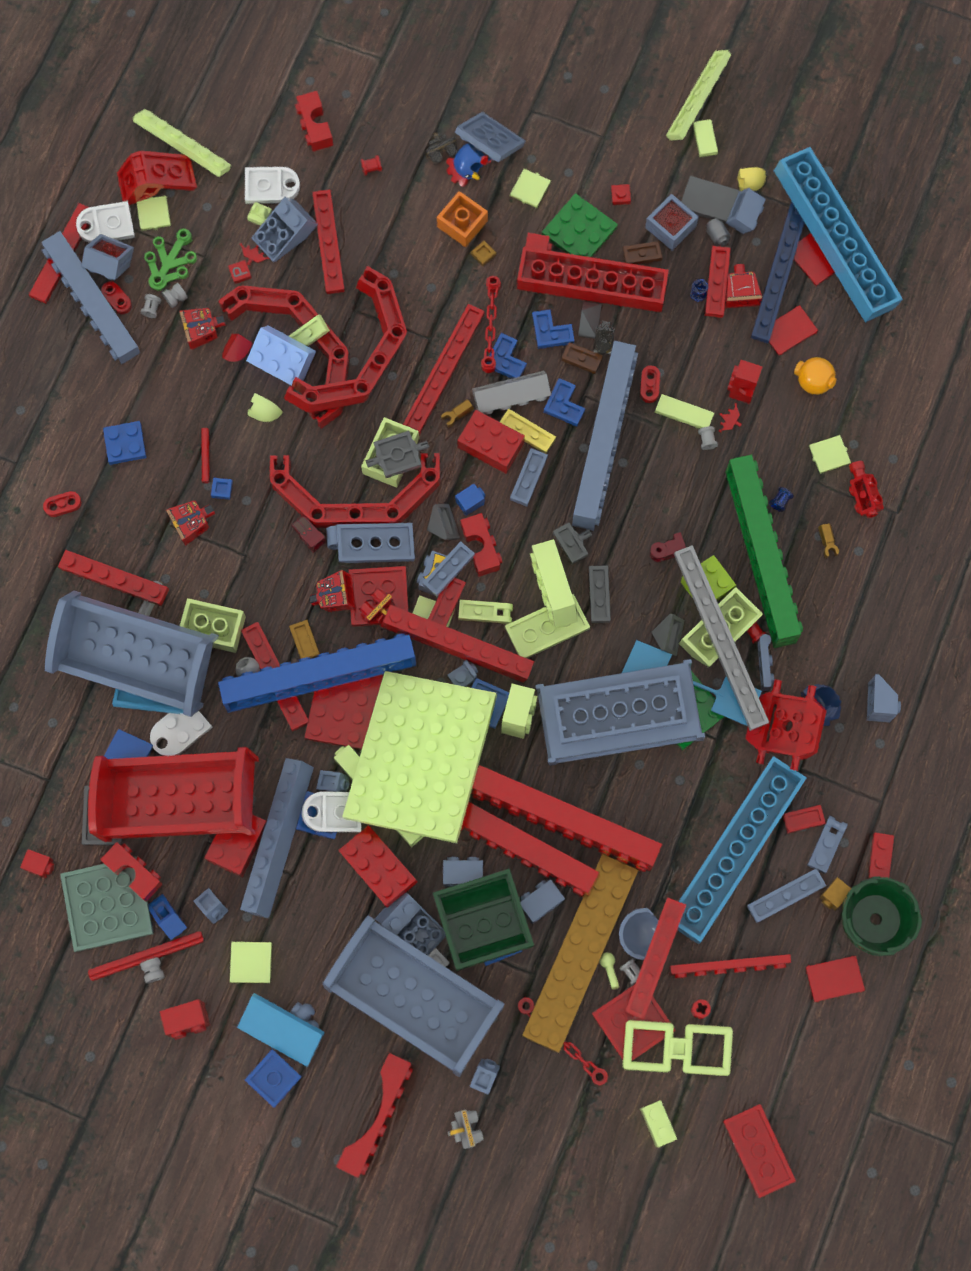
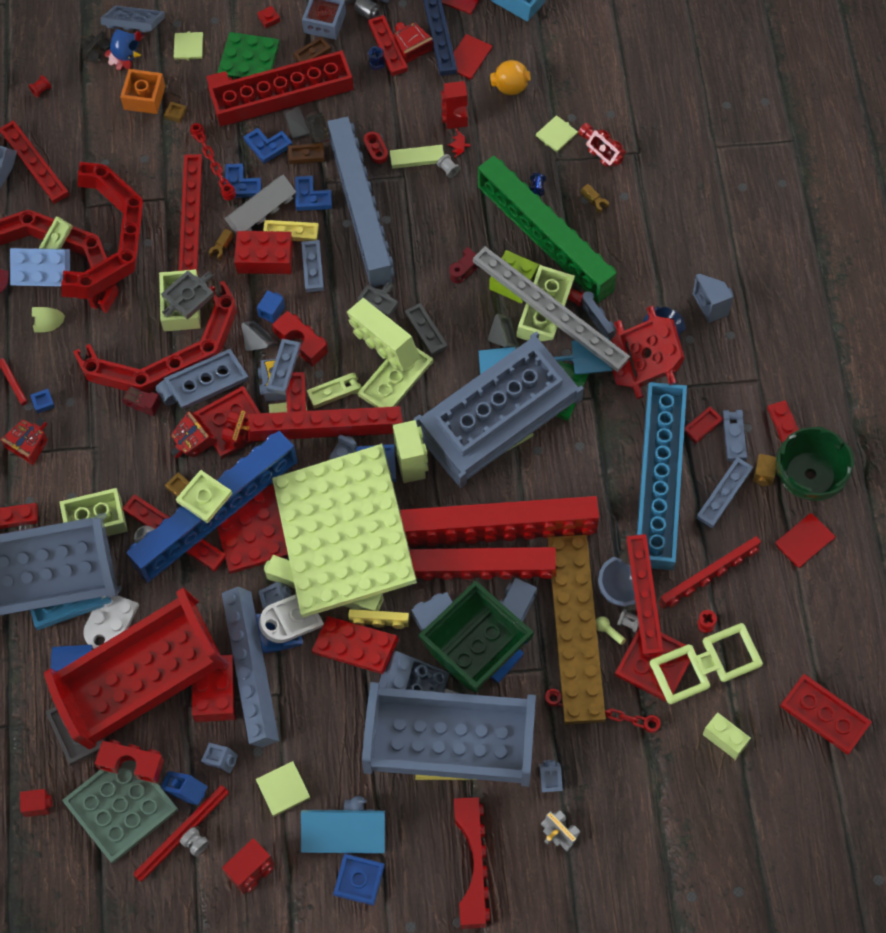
camera: 25 degrees left, 10 degrees down
(310, 665) = (204, 496): none -> yellowish green plate
(411, 852) = (379, 618): none -> light yellow plate

